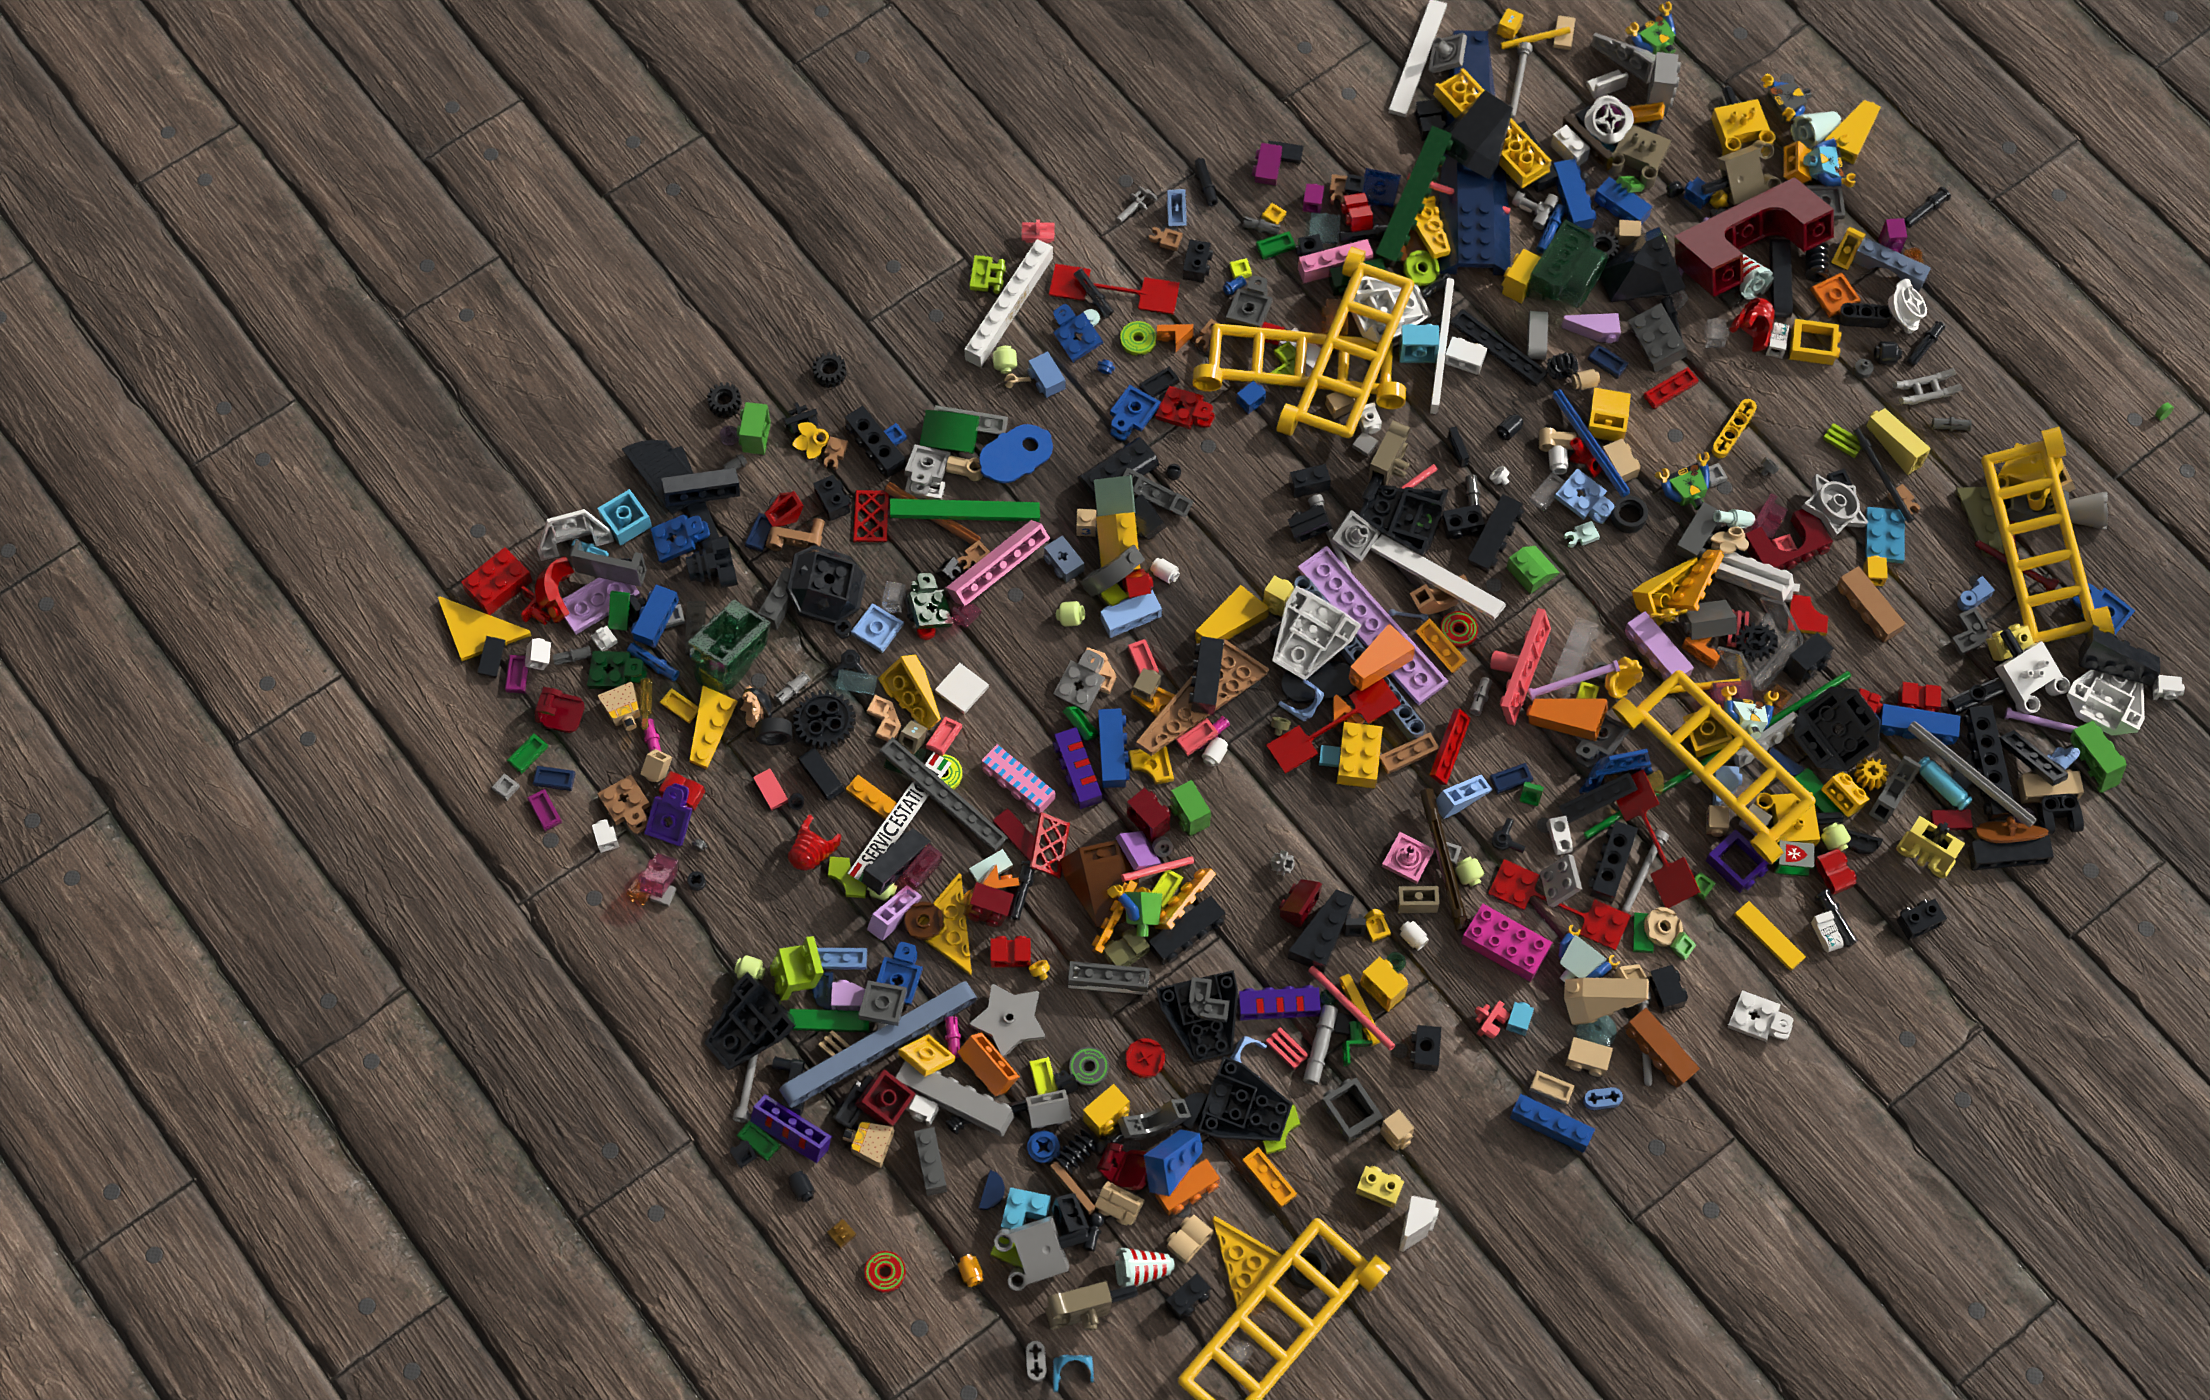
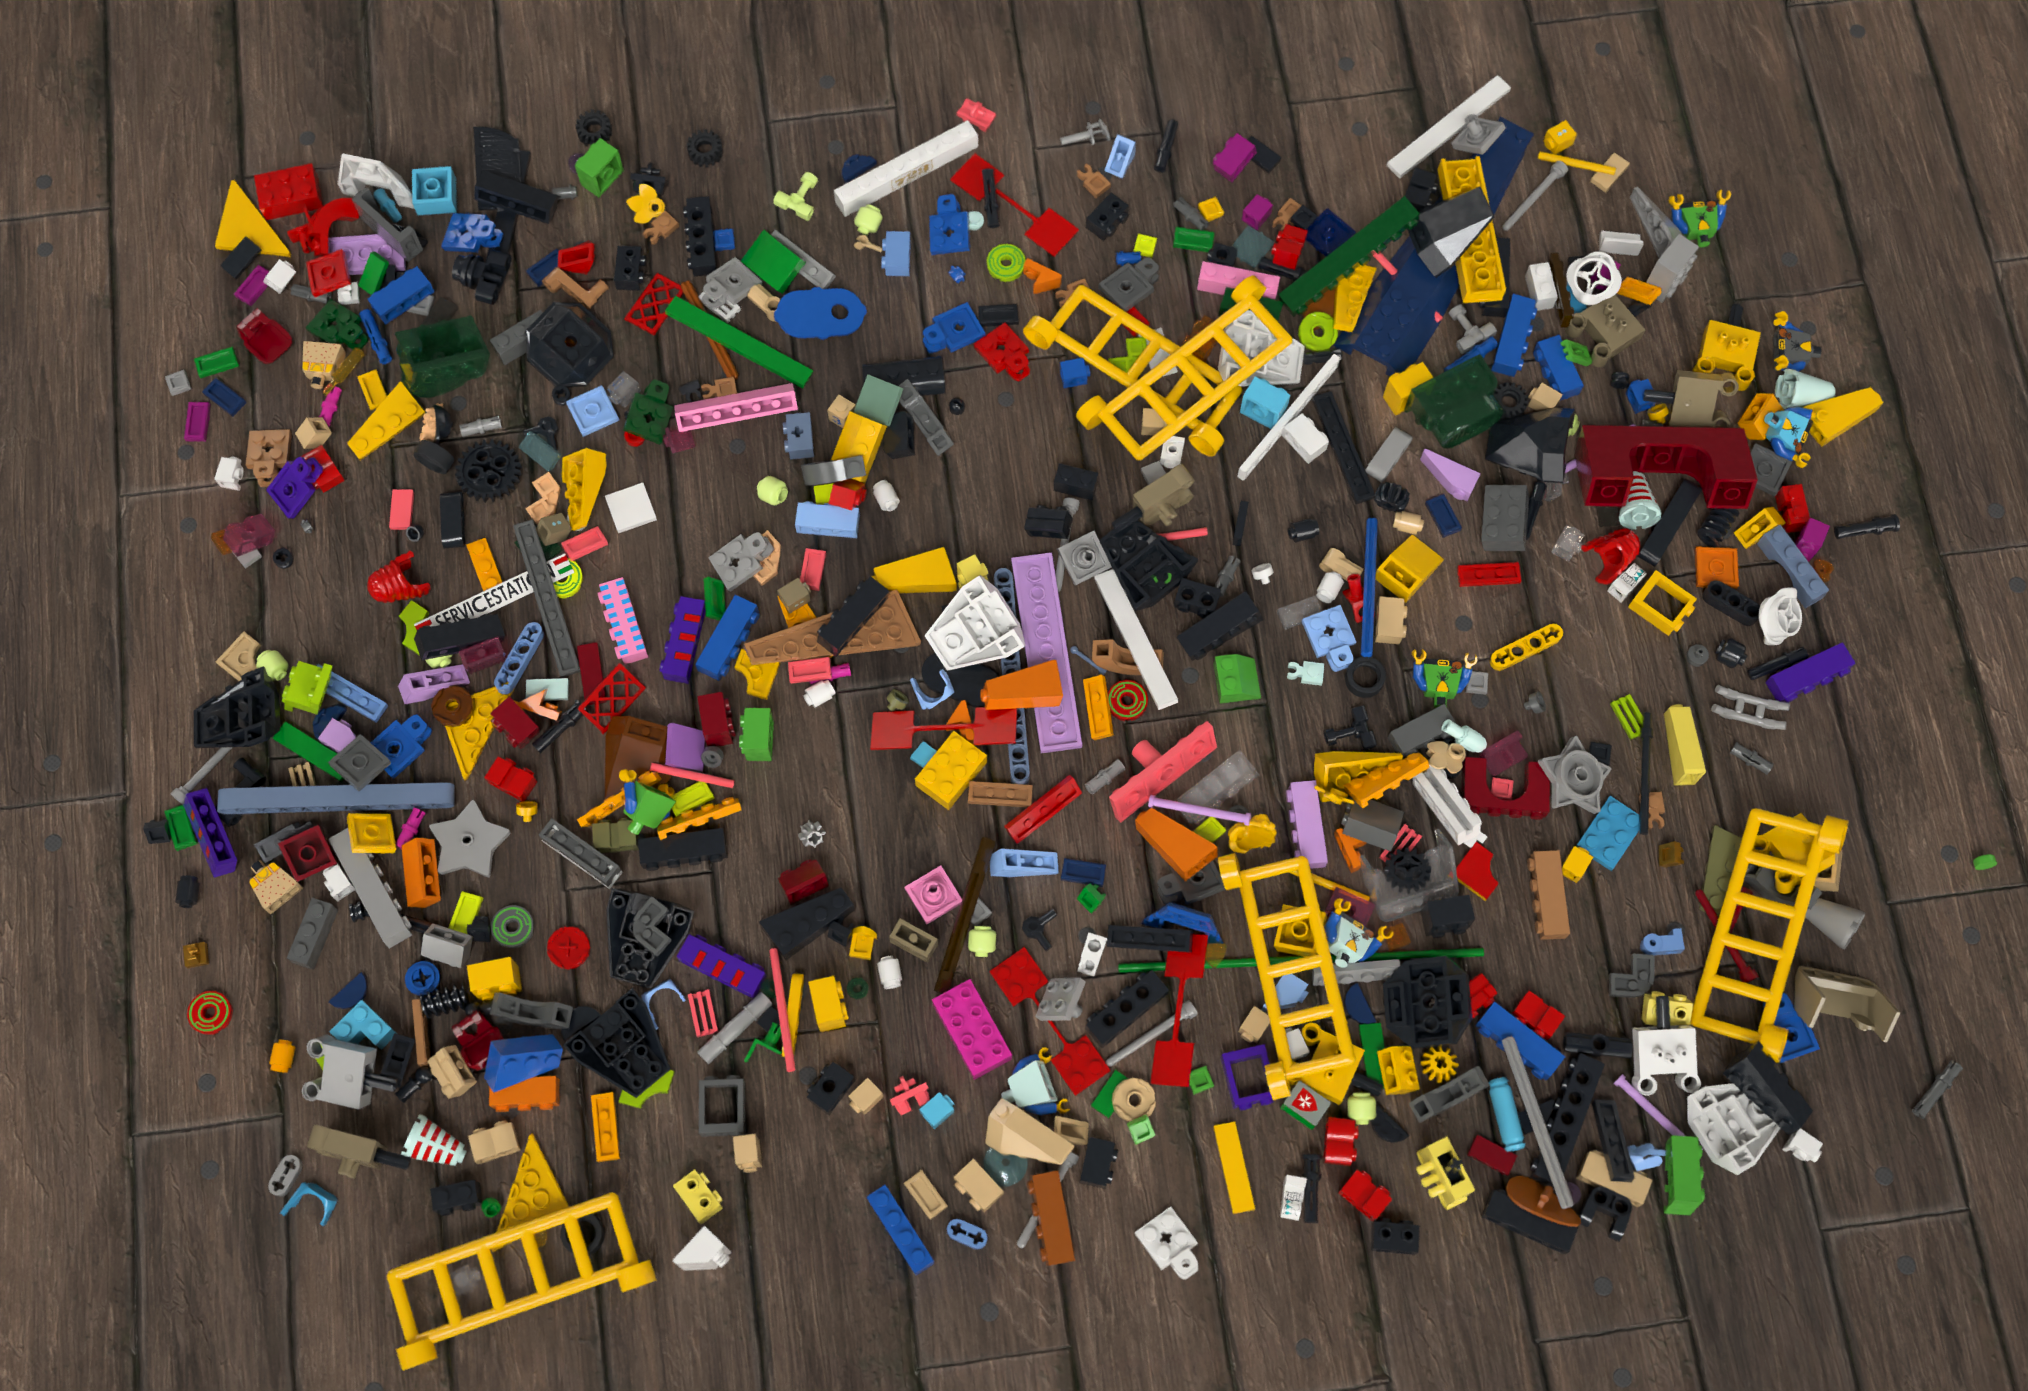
camera: 30 degrees right, 5 degrees up
(580, 629) = (328, 273): none -> red tile
(715, 980) = (240, 656): none -> tan tile
(934, 374) = (796, 201): none -> yellowish green bar
(949, 854) = (516, 657): none -> medium blue beam
(964, 322) = (856, 166): none -> dark blue tile
(981, 274) = (900, 128): lime plate -> none
(1219, 1289) = (490, 1207): none -> green hinge
(1458, 1039) = (865, 1097): none -> tan brick
(1649, 557) = (1358, 728): none -> black bar
(1864, 218) = (1794, 505): none -> red brick
(1880, 901) = (1365, 1195): none -> red brick
(1938, 526) = (1670, 854): none -> pearl gold tile
(1954, 337) = (1810, 673): none -> dark purple brick
(2132, 561) = (1845, 997): none -> dark tan windscreen

